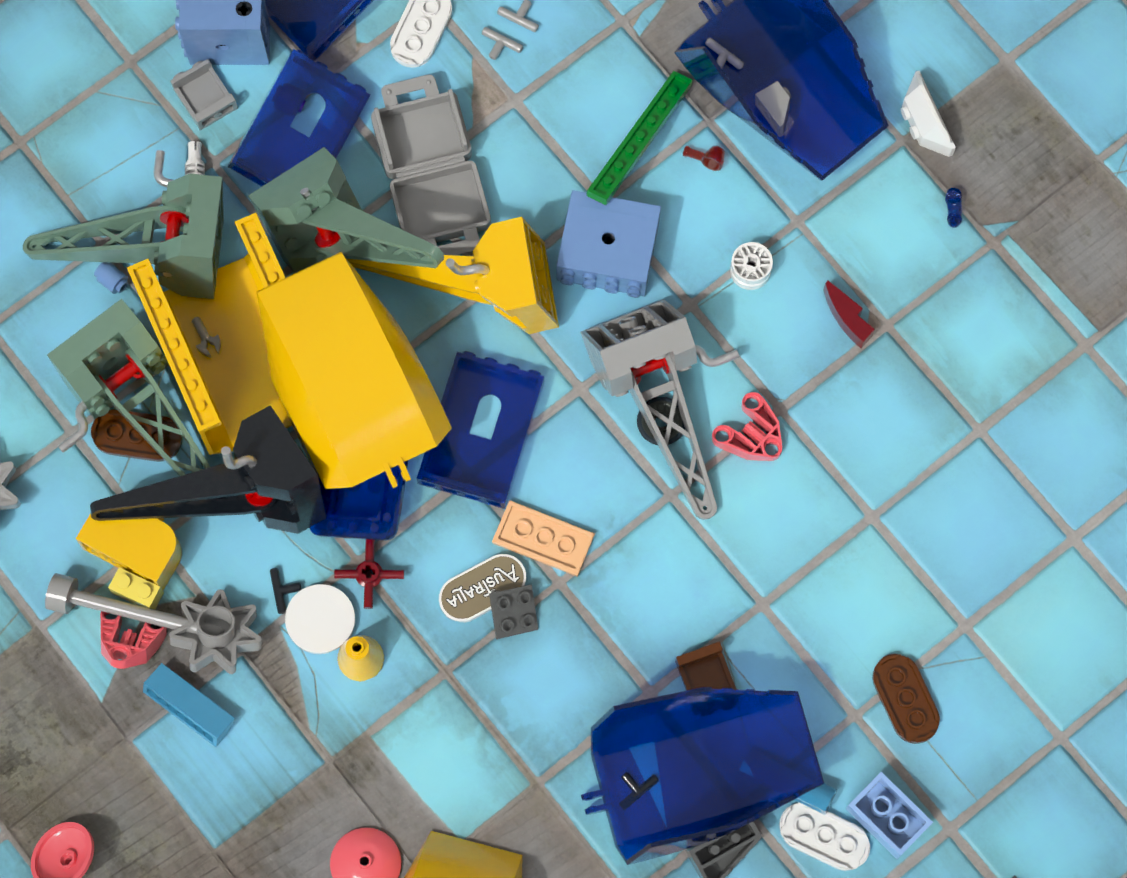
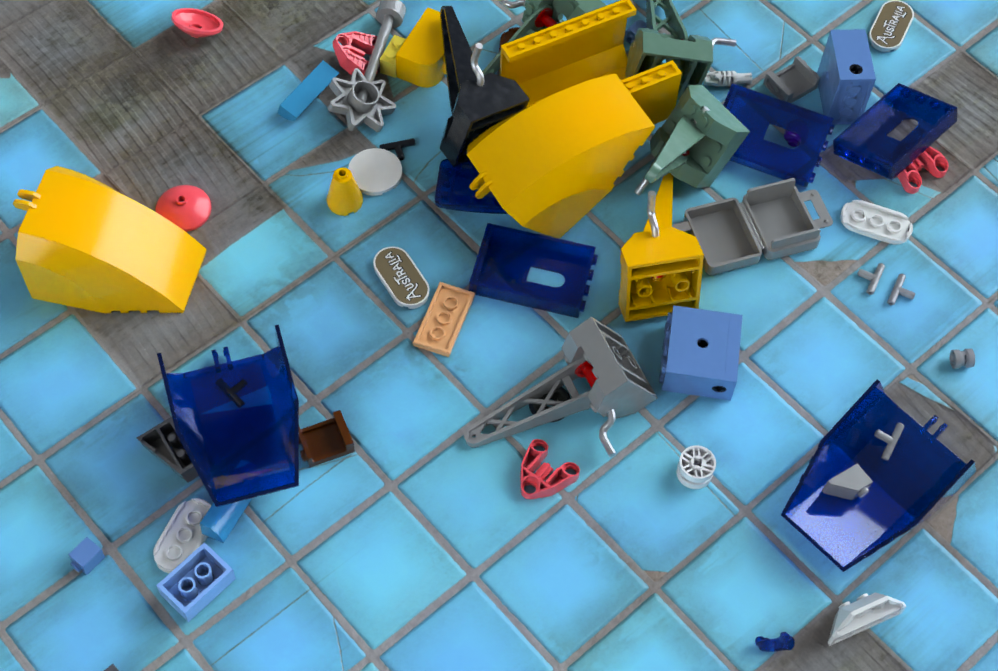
camera: 85 degrees right, 15 degrees down
(361, 570) = (410, 199): dark red bar -> none
(513, 611) = (379, 294): dark grey hinge -> none
(639, 138) = (794, 366): green plate -> none
(711, 159) = (794, 437): clear red bar -> none
(848, 315) = (658, 549): dark red slope -> none
(906, 698) = (304, 602): reddish brown tile -> none

